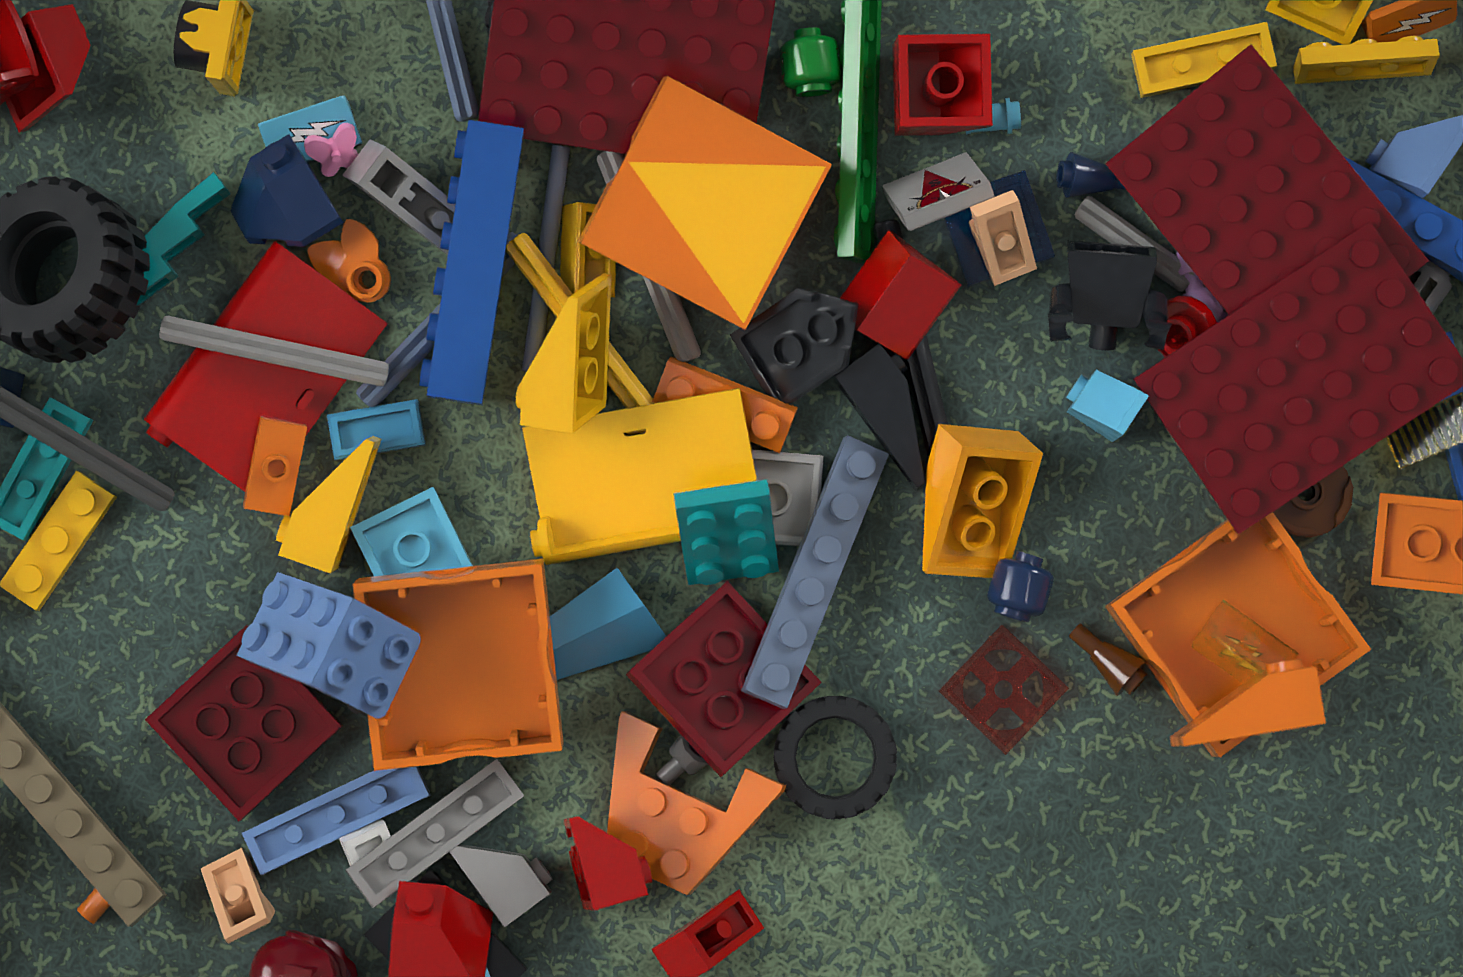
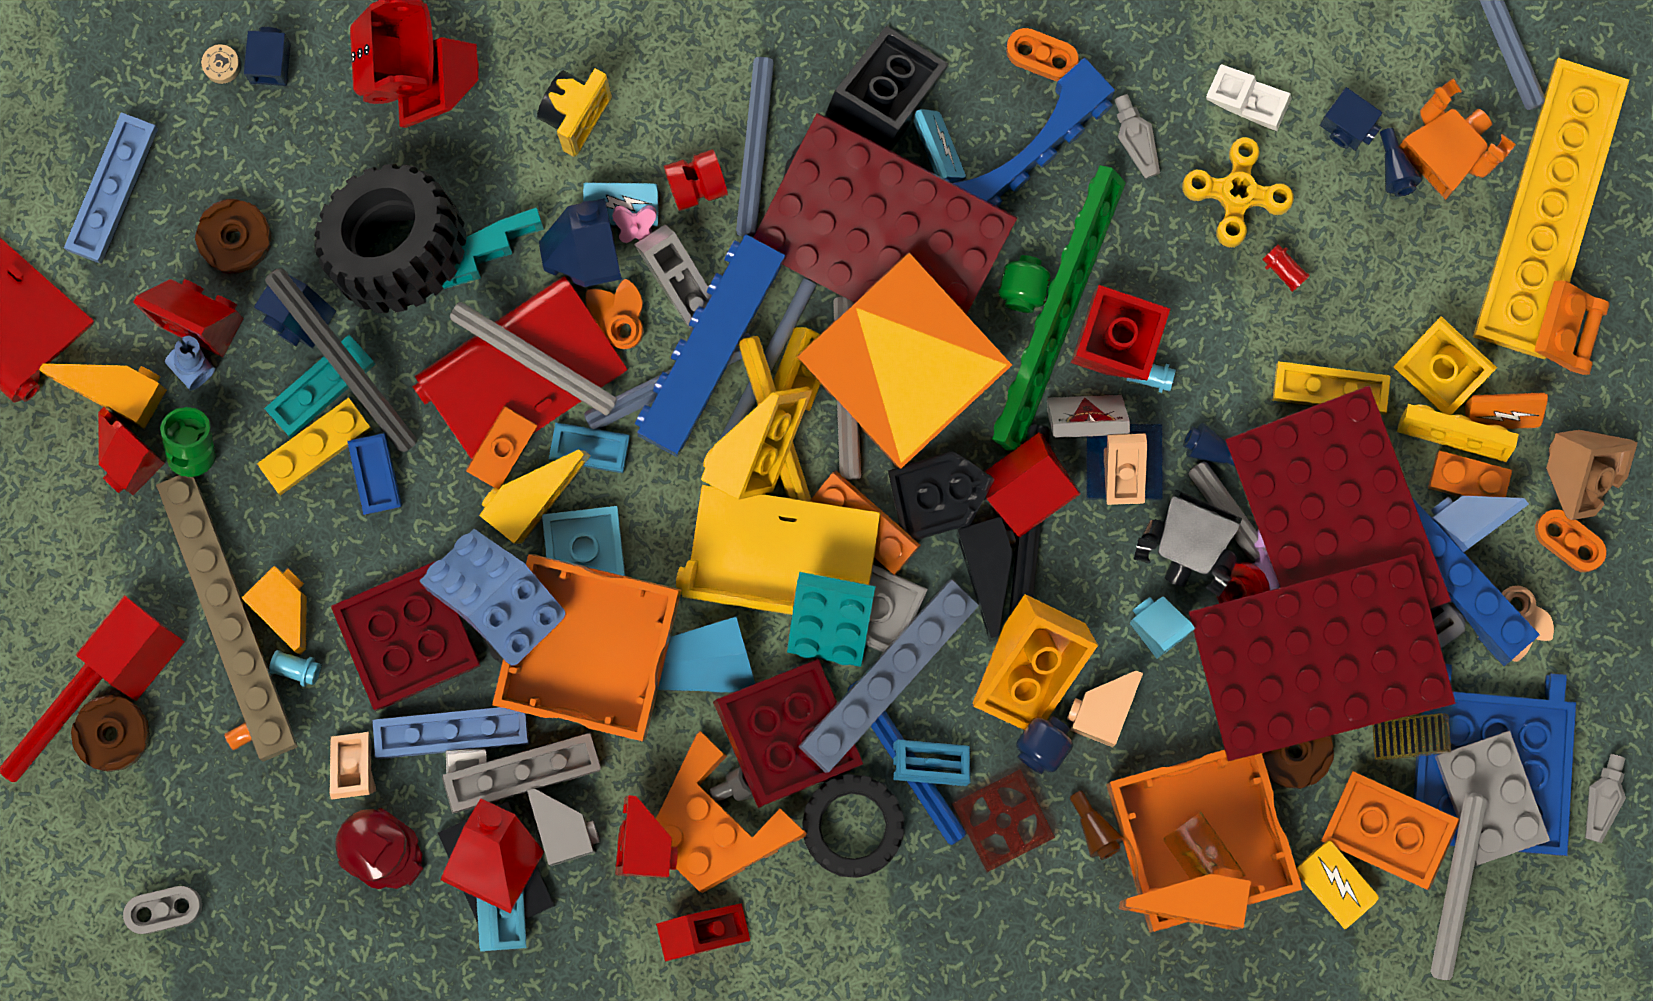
camera: 20 degrees right, 5 degrees down
(88, 740) = (281, 605): none -> light orange slope
(130, 804) = (295, 668): none -> medium azure pin
(139, 548) = (374, 473): none -> blue tile
(404, 75) = (708, 178): none -> red wheel
(865, 664) = (902, 761): none -> dark azure tile
(889, 676) = (926, 792): none -> blue axle
(1074, 522) = (1104, 709): none -> light nougat slope
(1395, 108) = (1468, 477): none -> orange plate
(1405, 627) = (1337, 884): none -> yellow slope

